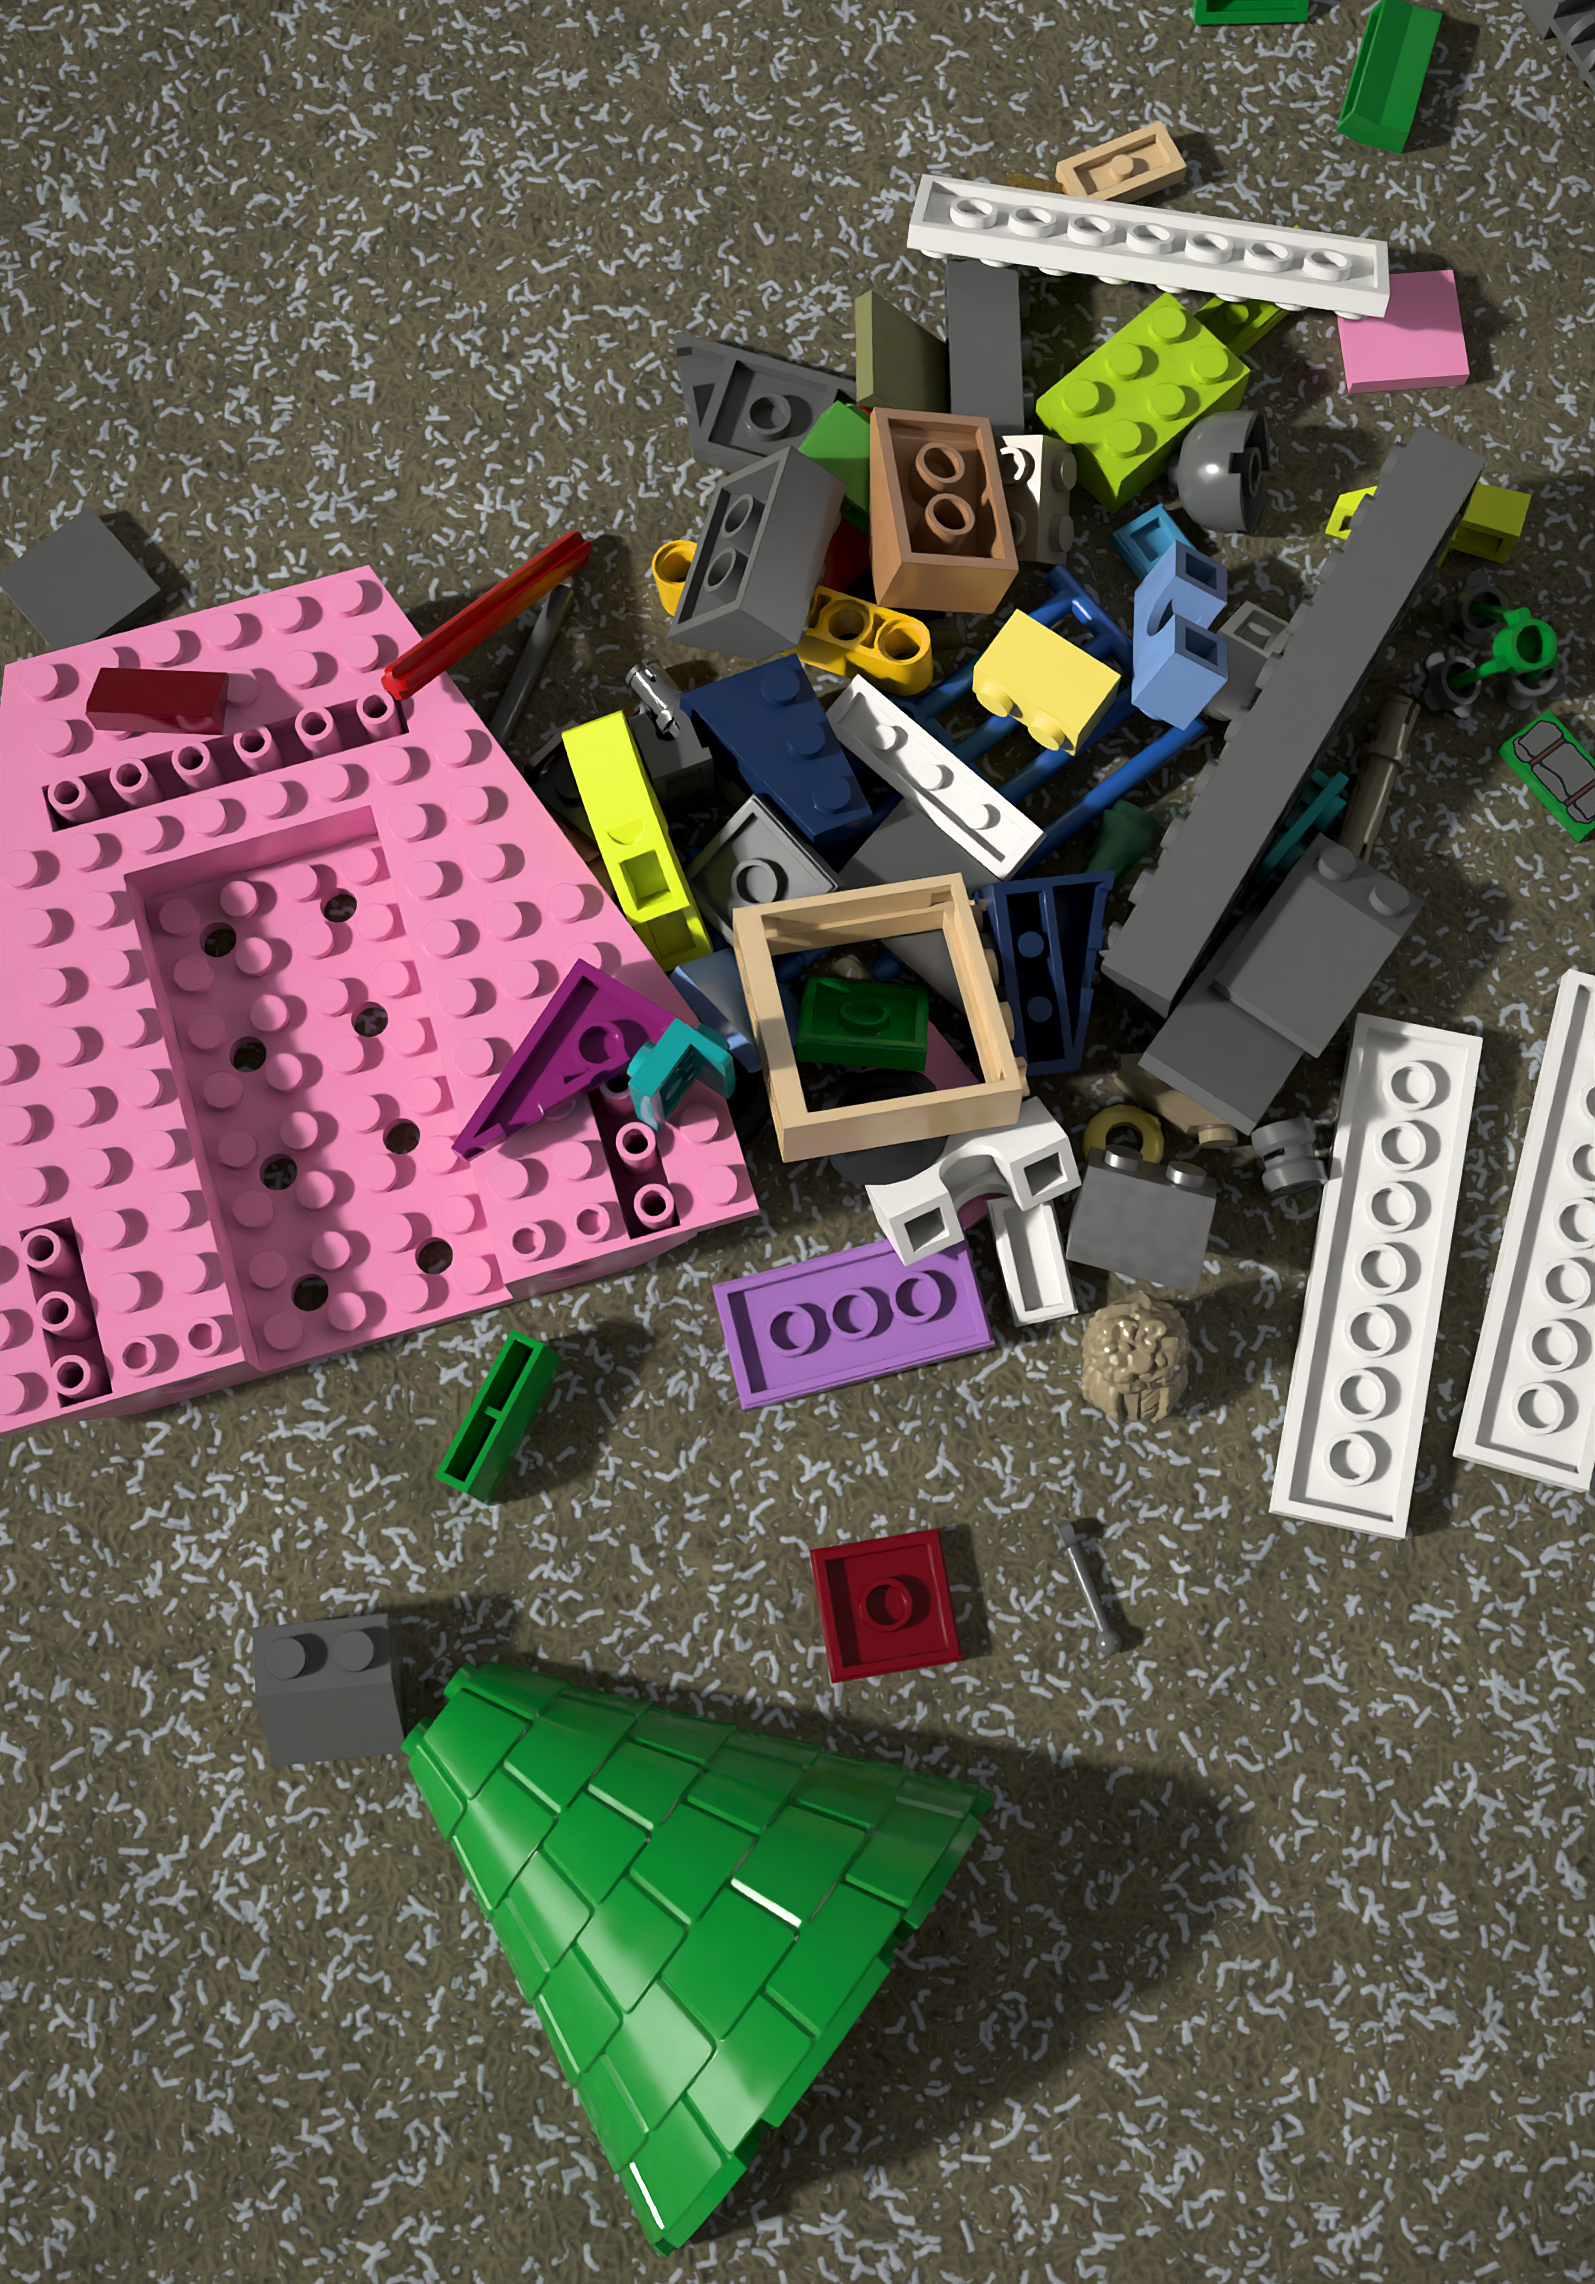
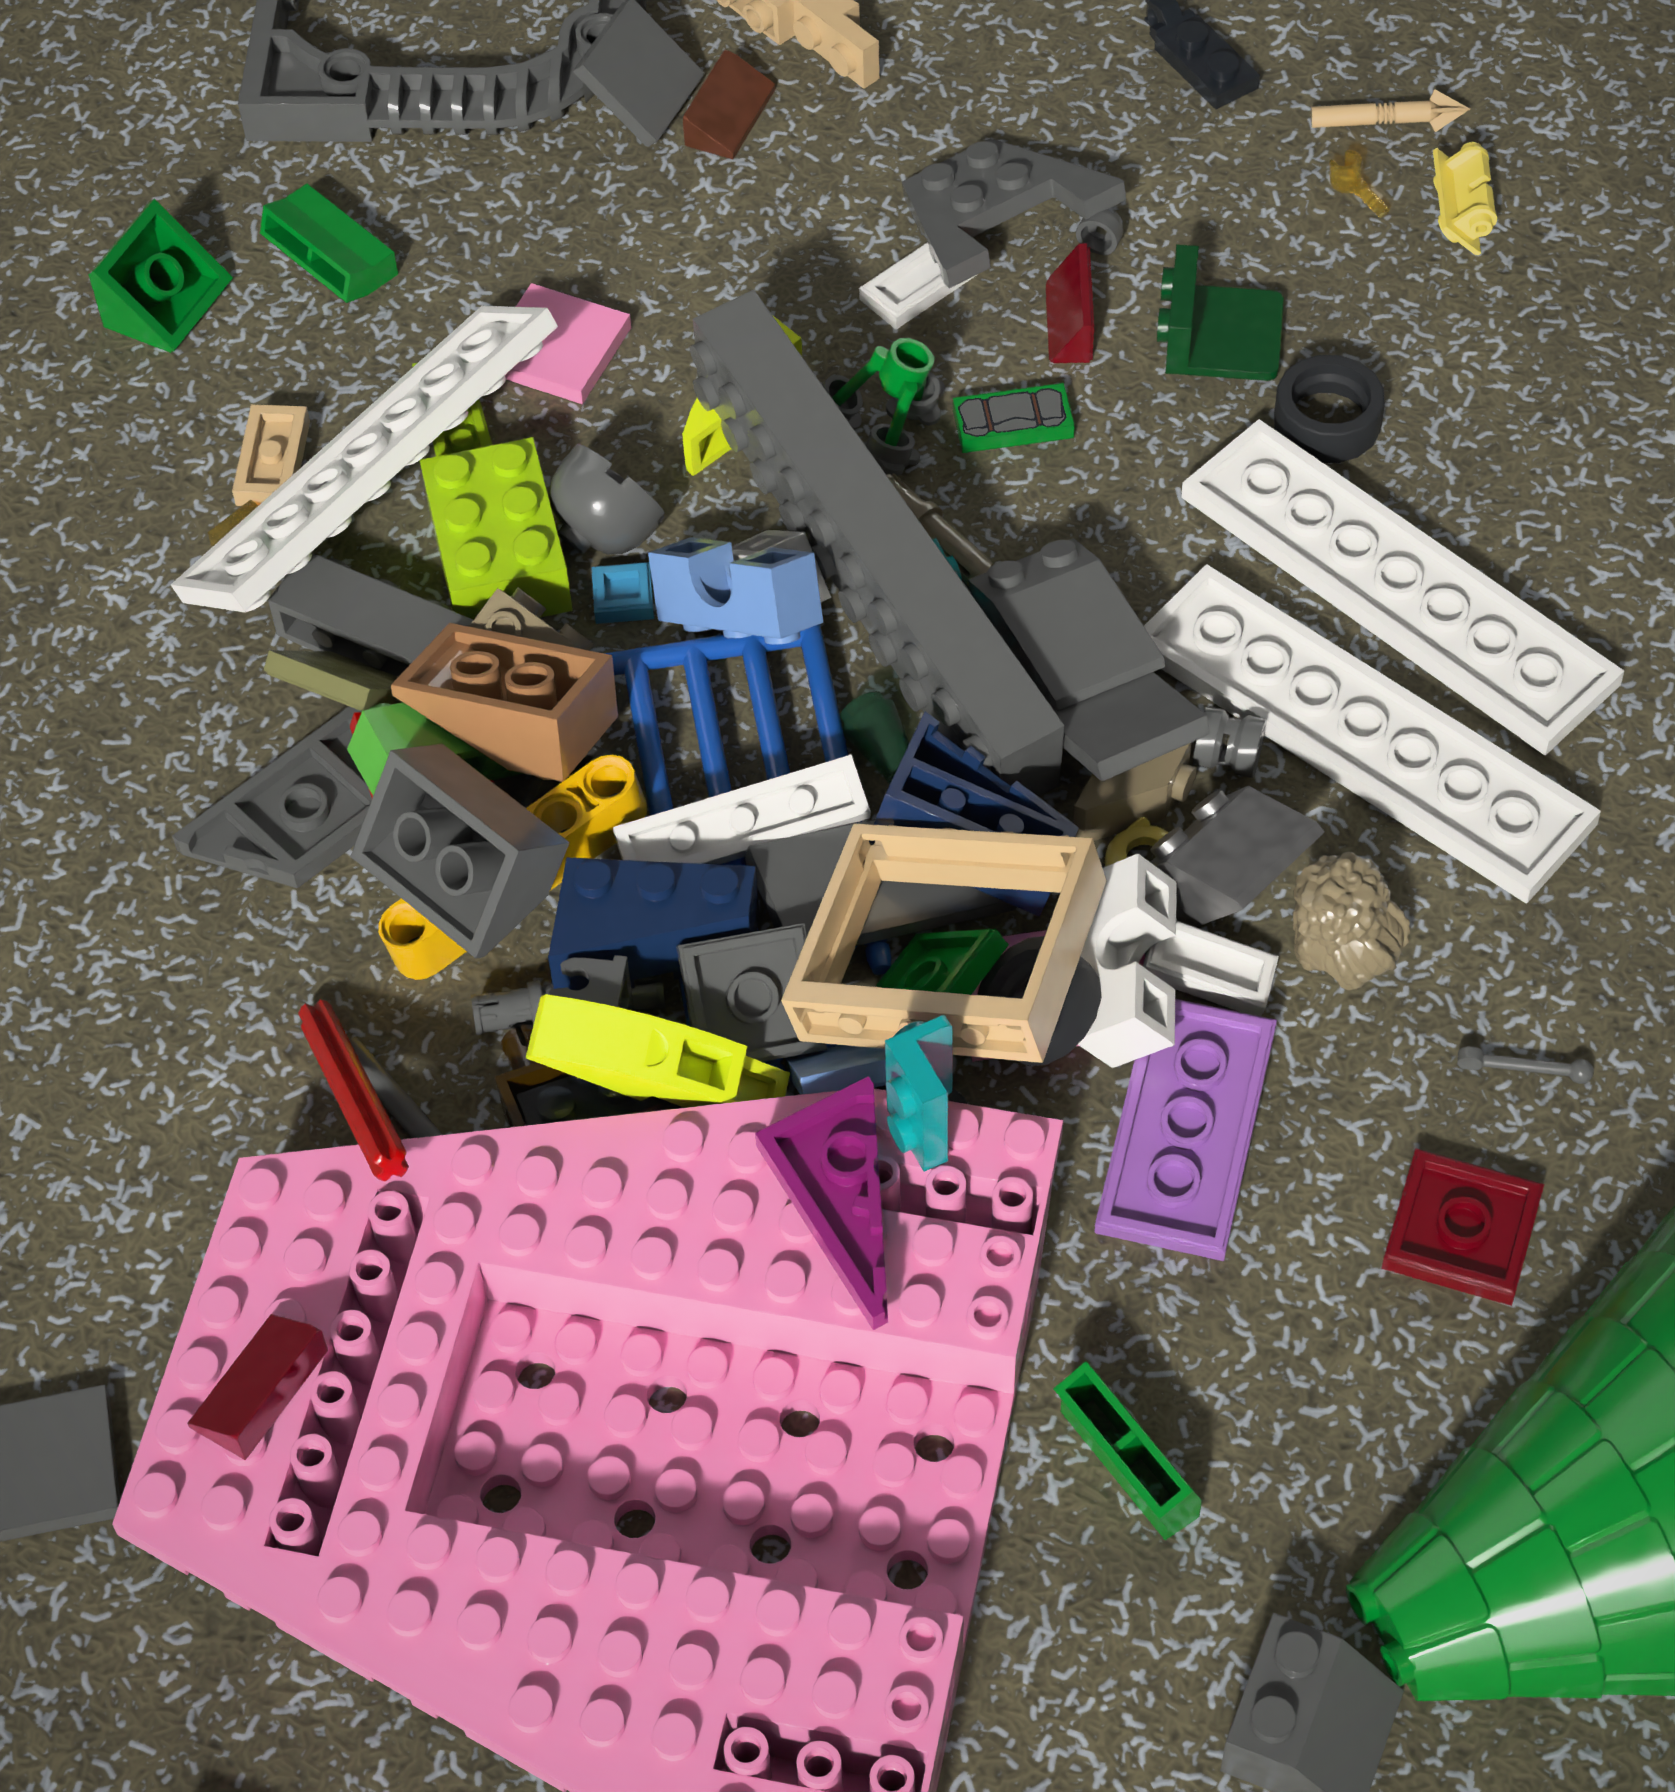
camera: 60 degrees left, 20 degrees down
(1044, 683) = (711, 702): light yellow brick -> none

